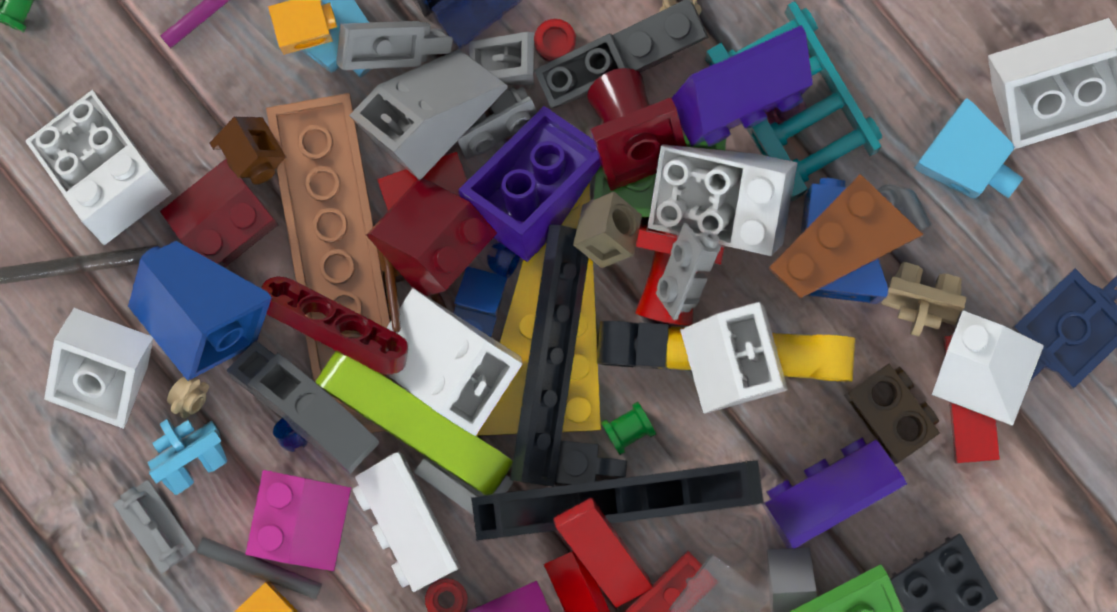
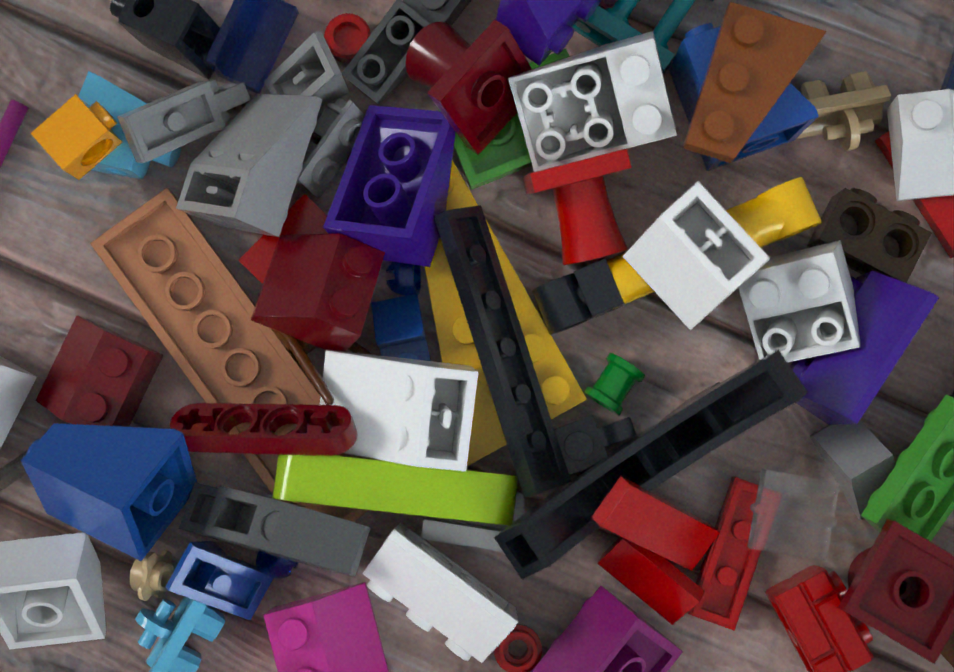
camera: 25 degrees left, 0 degrees up
(240, 427) = (219, 580): none -> blue slope
(249, 148) = (90, 291): reddish brown brick -> none
(607, 230) = (495, 193): dark tan brick -> none
(680, 284) = (598, 201): light grey hinge -> none
(806, 437) = (802, 304): none -> white slope

